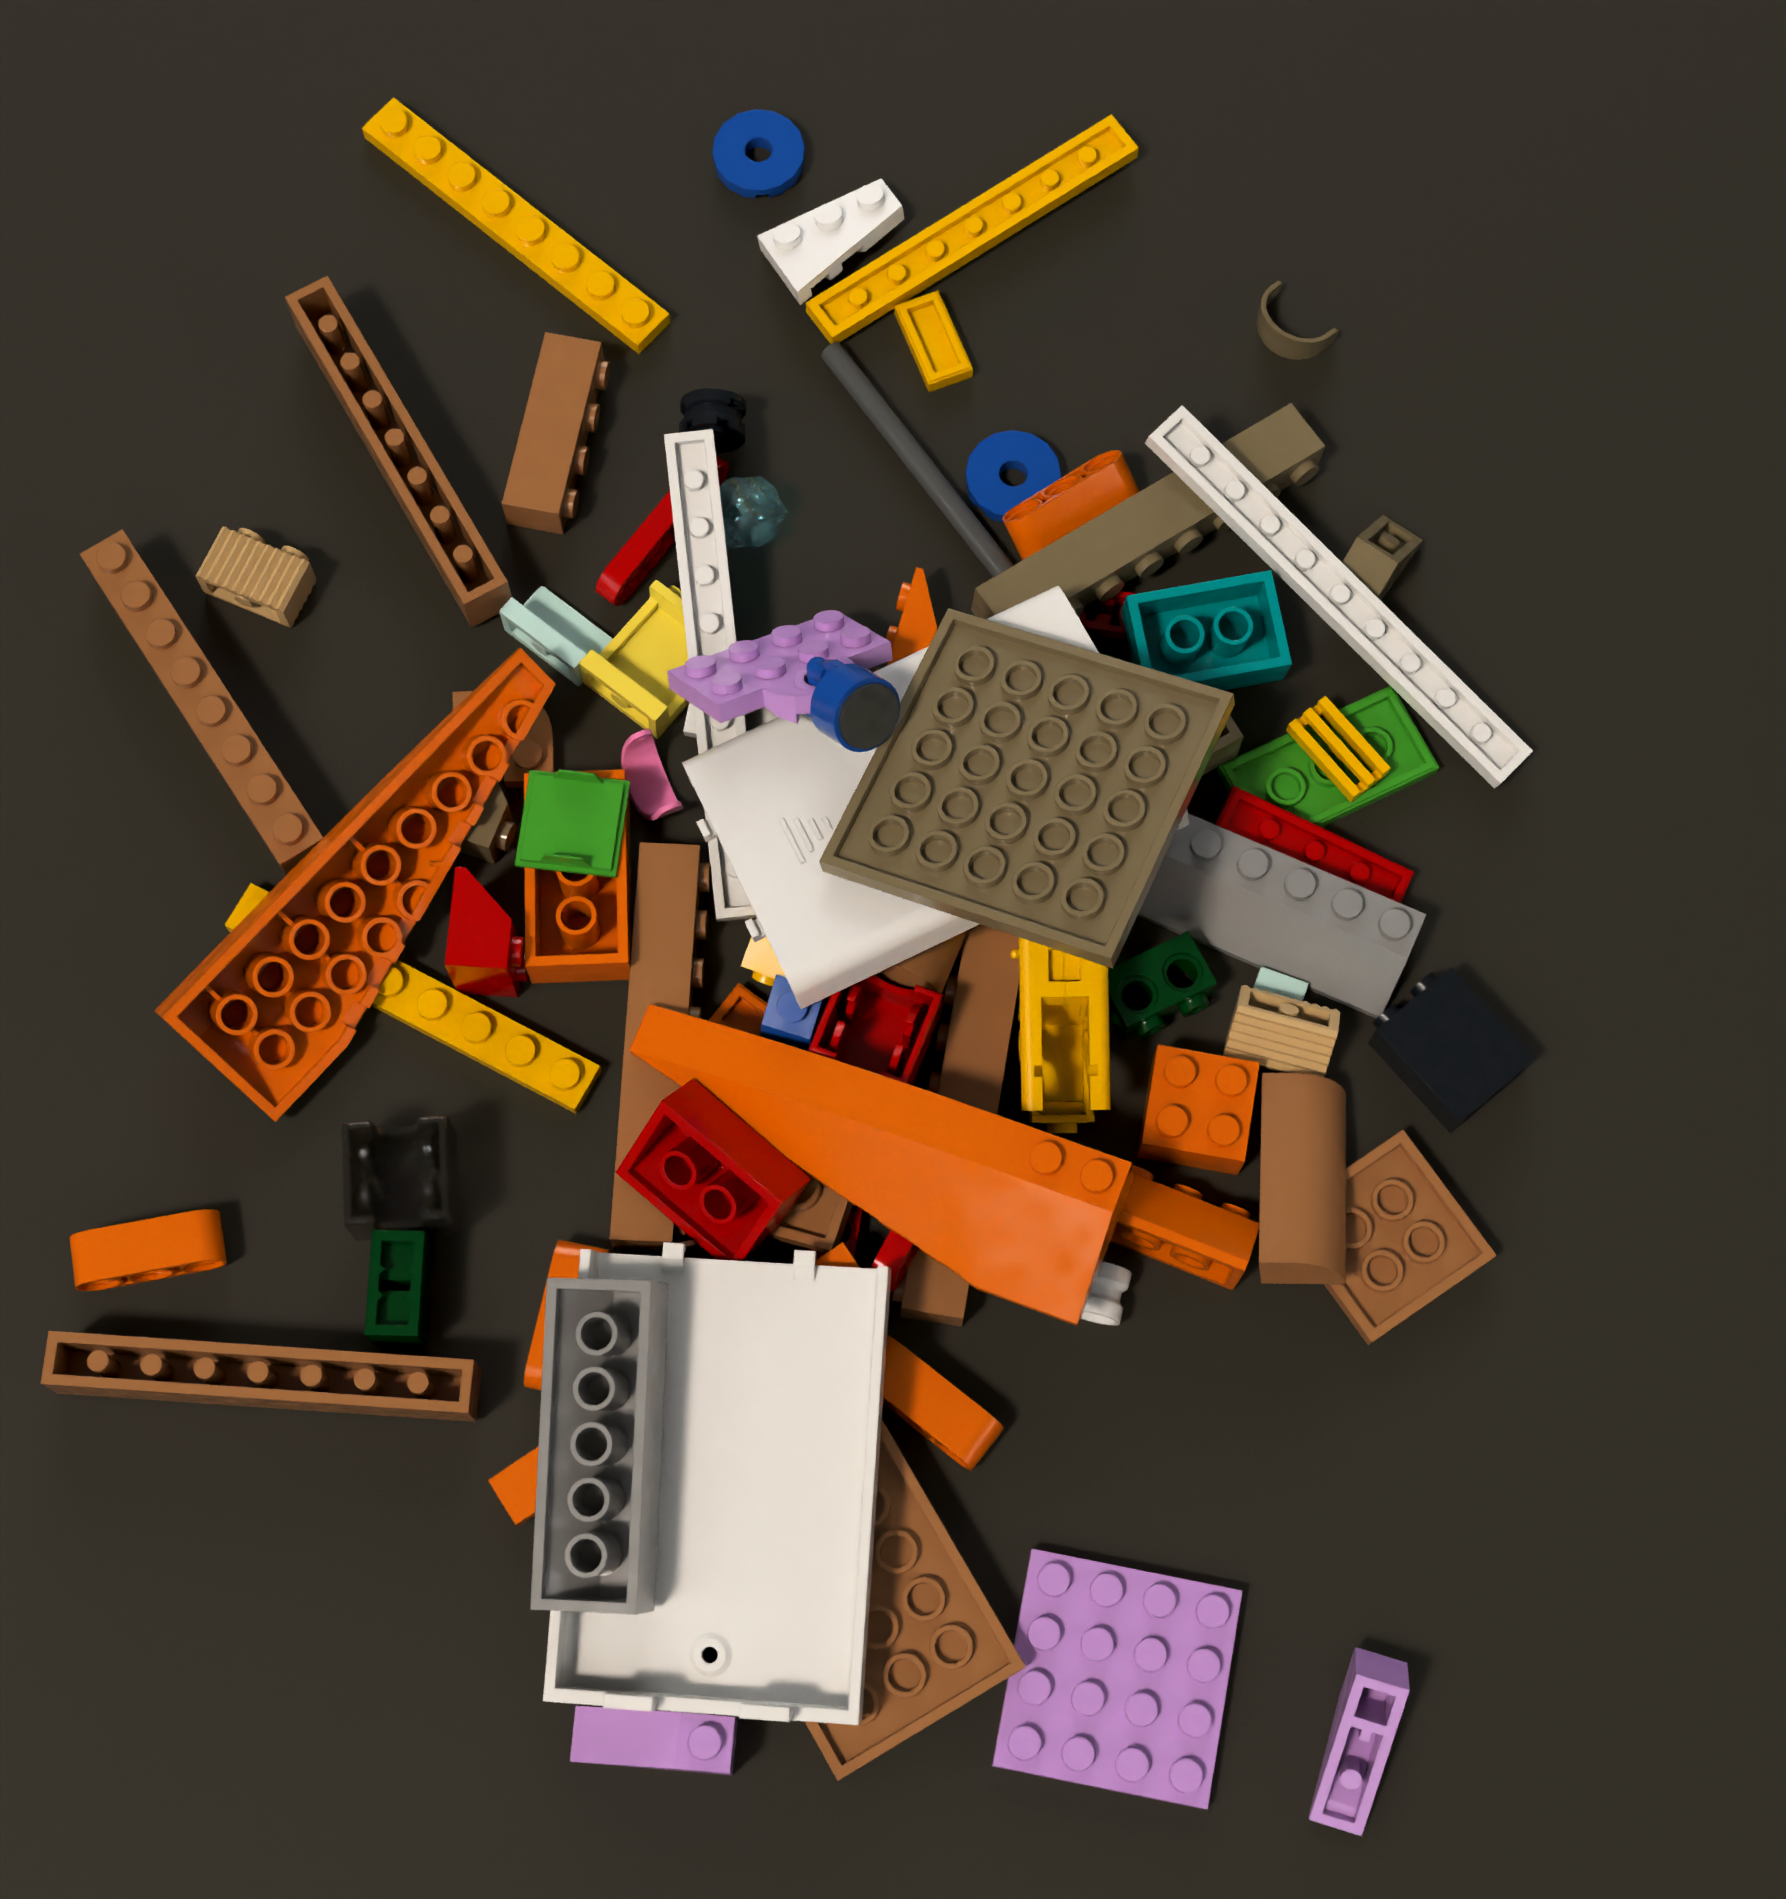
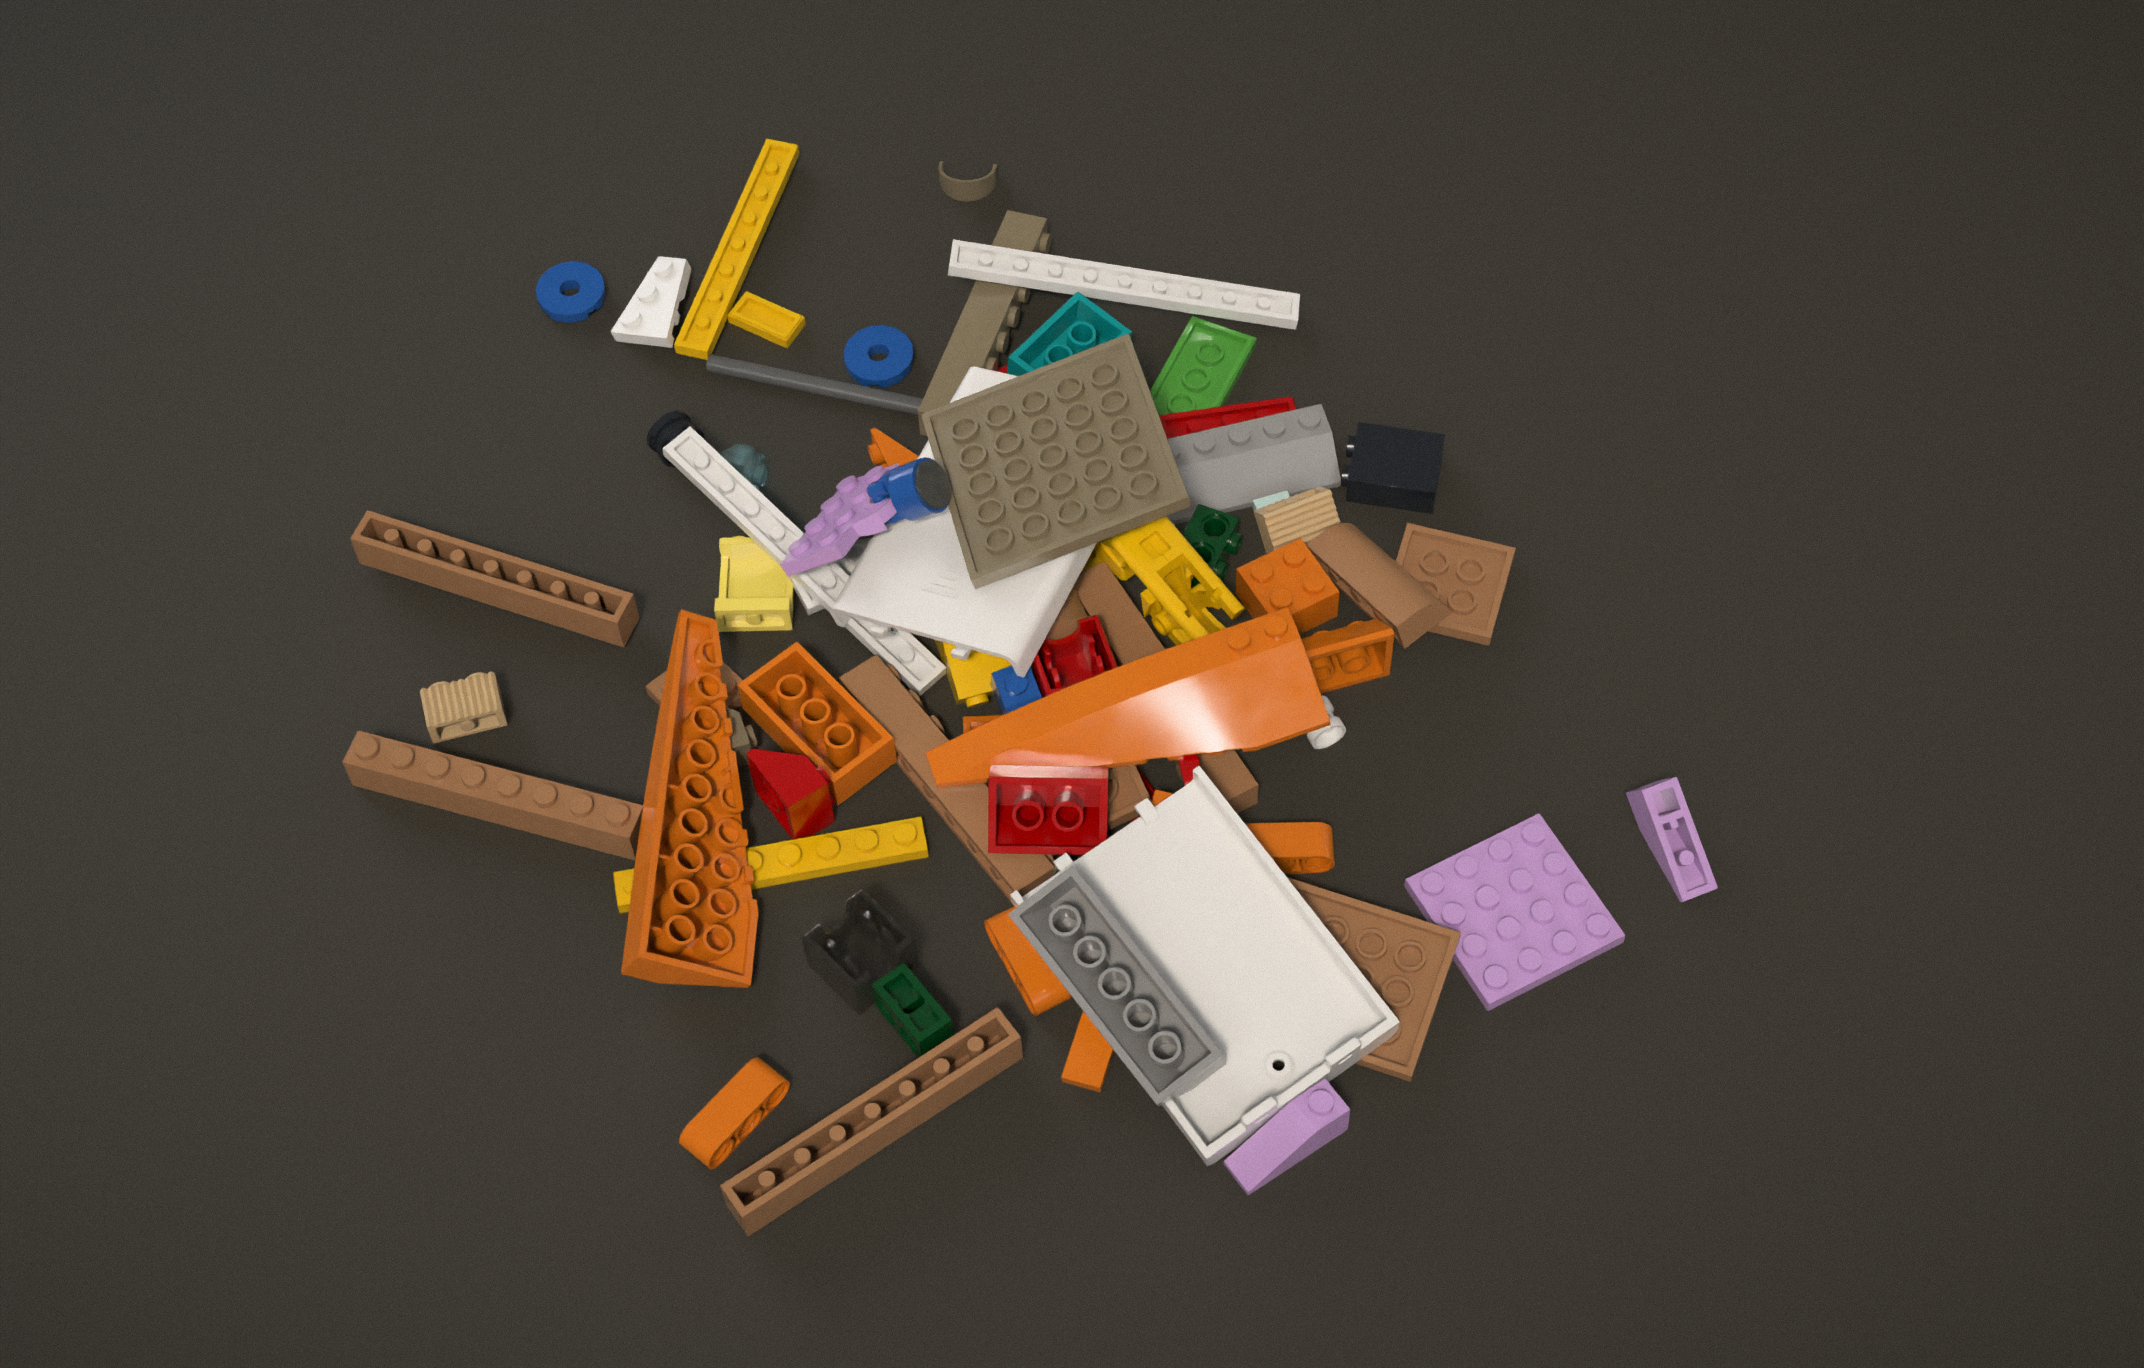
camera: 35 degrees left, 15 degrees down
(516, 225) = (452, 422): yellow plate -> none
(553, 631) = (660, 613): light aqua panel -> none
(555, 433) = (583, 510): medium nougat brick -> none
(572, 823) = (791, 688): bright green piece -> none
(643, 550) = (694, 530): red beam -> none
(648, 781) = (825, 657): bright pink helmet -> none
(1070, 502) = (927, 343): orange beam -> none
(1351, 736) = (1194, 358): yellow tile -> none
(1381, 554) = (1127, 252): dark tan slope -> none

